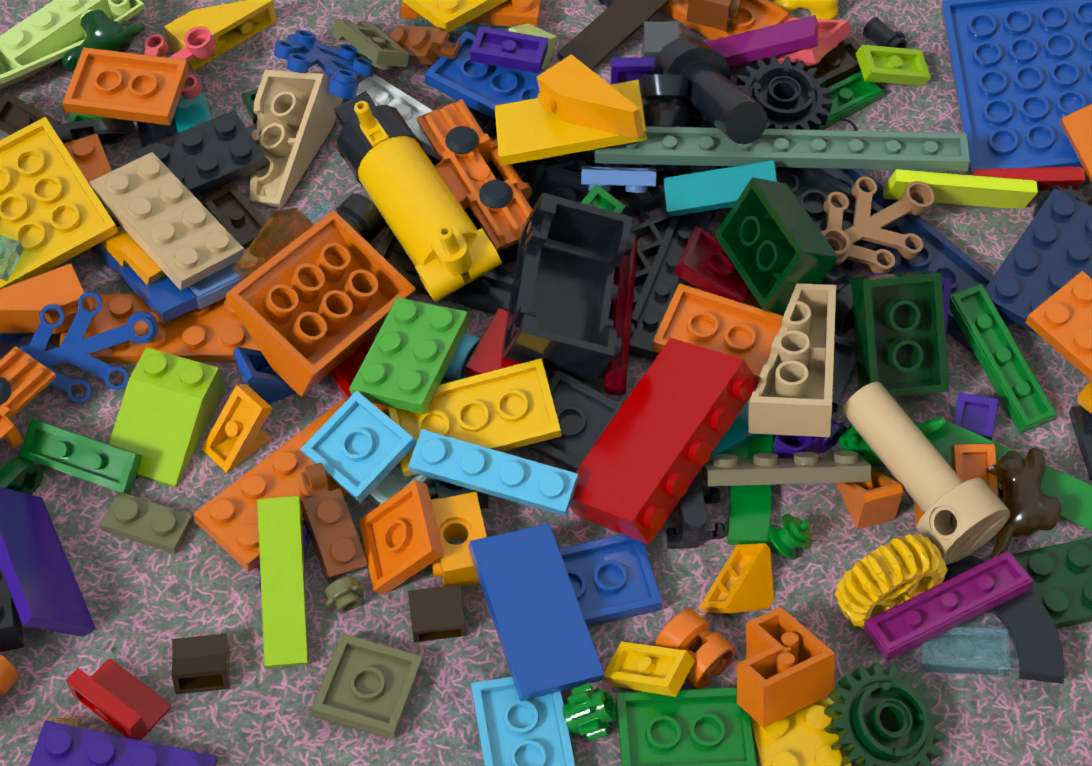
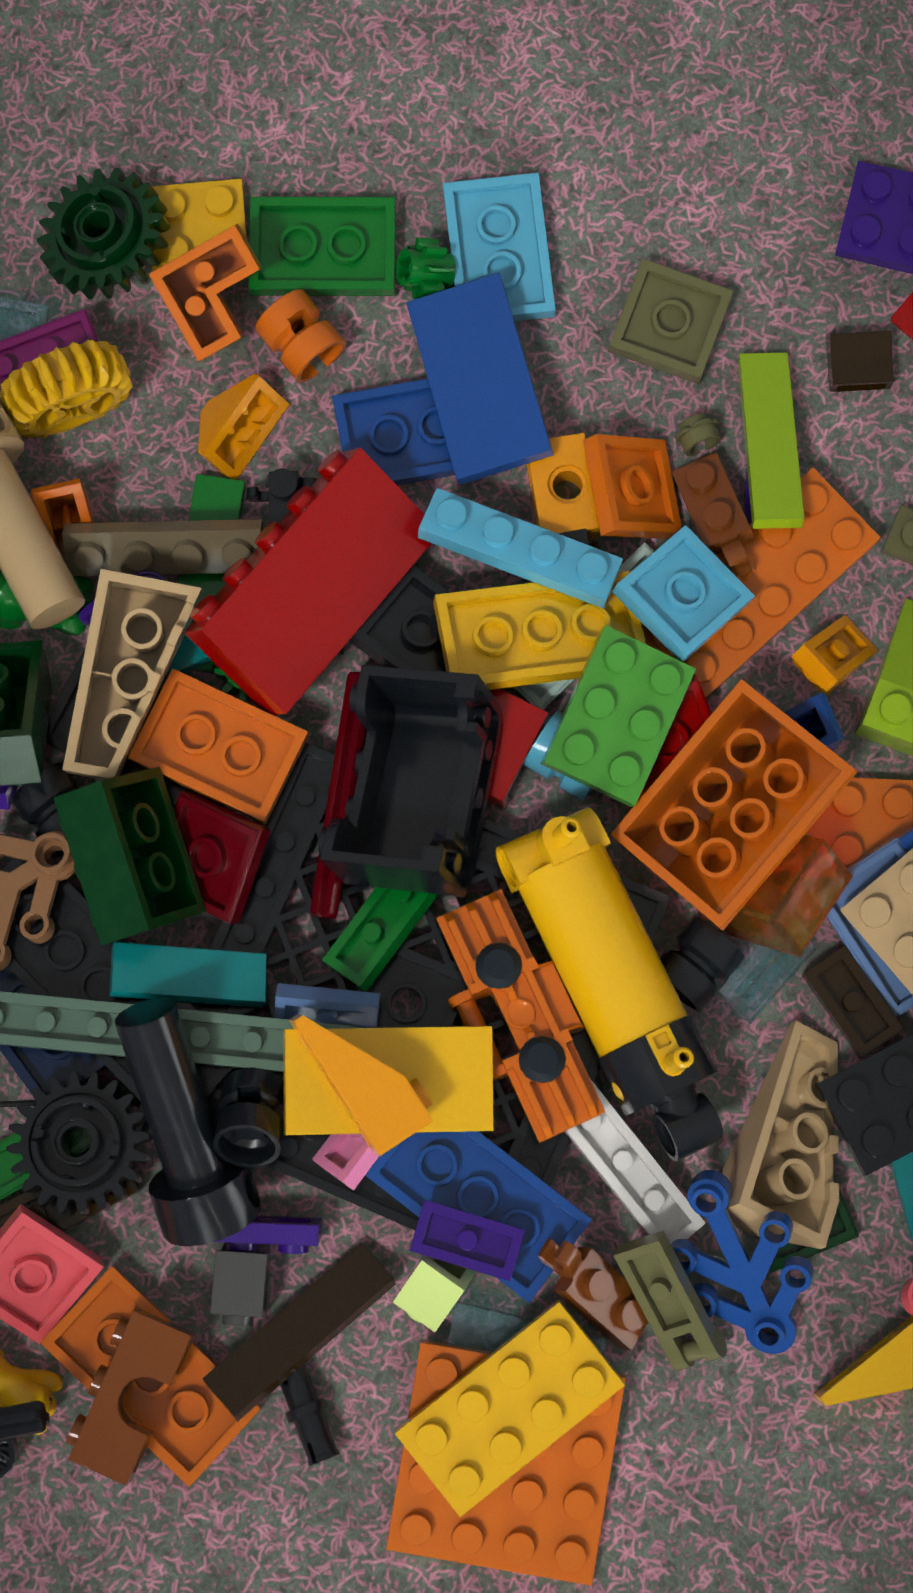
camera: 175 degrees left, 25 degrees up
(437, 613) = (592, 405): dark brown piece -> none
(648, 668) = (356, 309): yellow plate -> none
(768, 41) = (107, 1255): magenta tile -> none
(790, 536) = (171, 474): green wheel -> none

